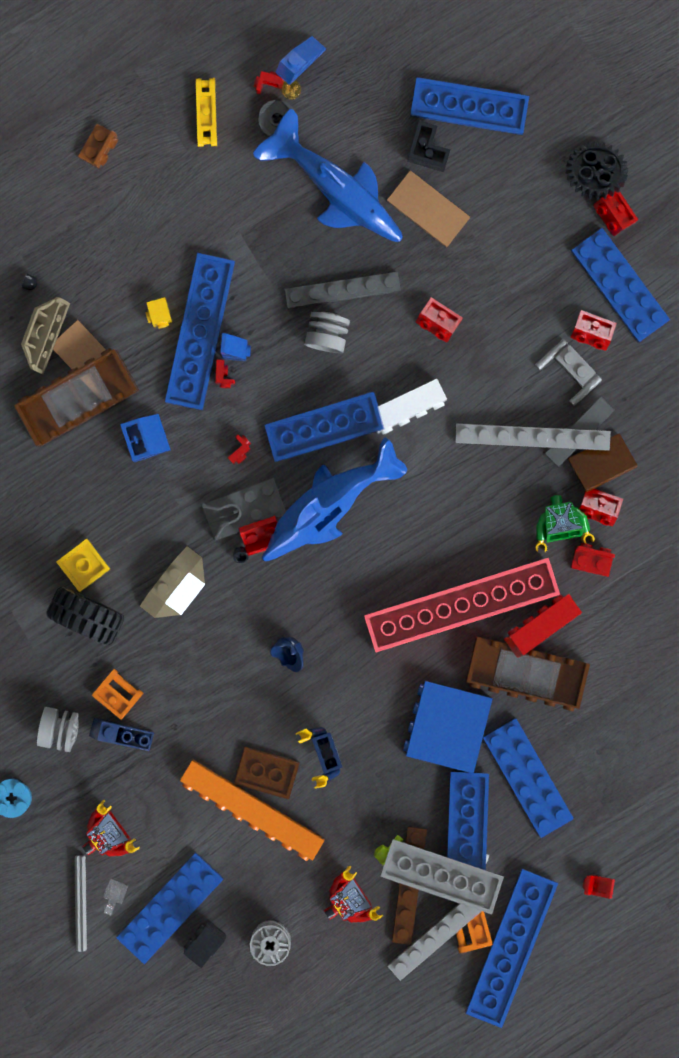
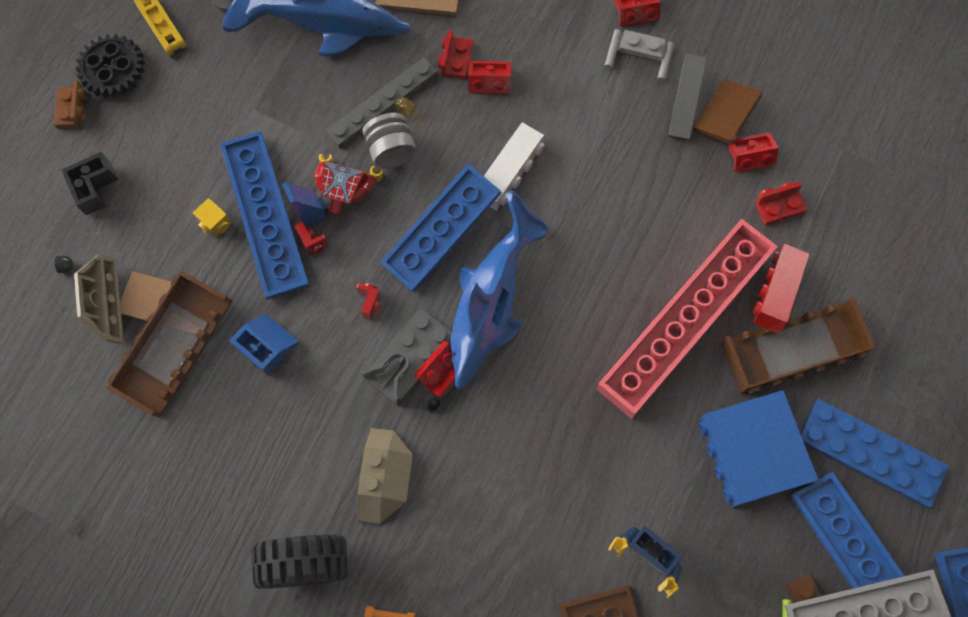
camera: 25 degrees left, 15 degrees down
(79, 223) = (86, 179): none -> black brick
(83, 565) = (271, 512): yellow plate -> none
(145, 112) = (110, 65): none -> black gear
(272, 344) = (343, 183): none -> red torso
(289, 653) = (545, 473): dark blue piece -> none
(358, 308) = (405, 106): none -> clear yellow tile
(423, 286) = (456, 56): none -> red bracket
(533, 436) = (647, 123): light grey plate -> none
(561, 522) = (728, 185): green torso -> none

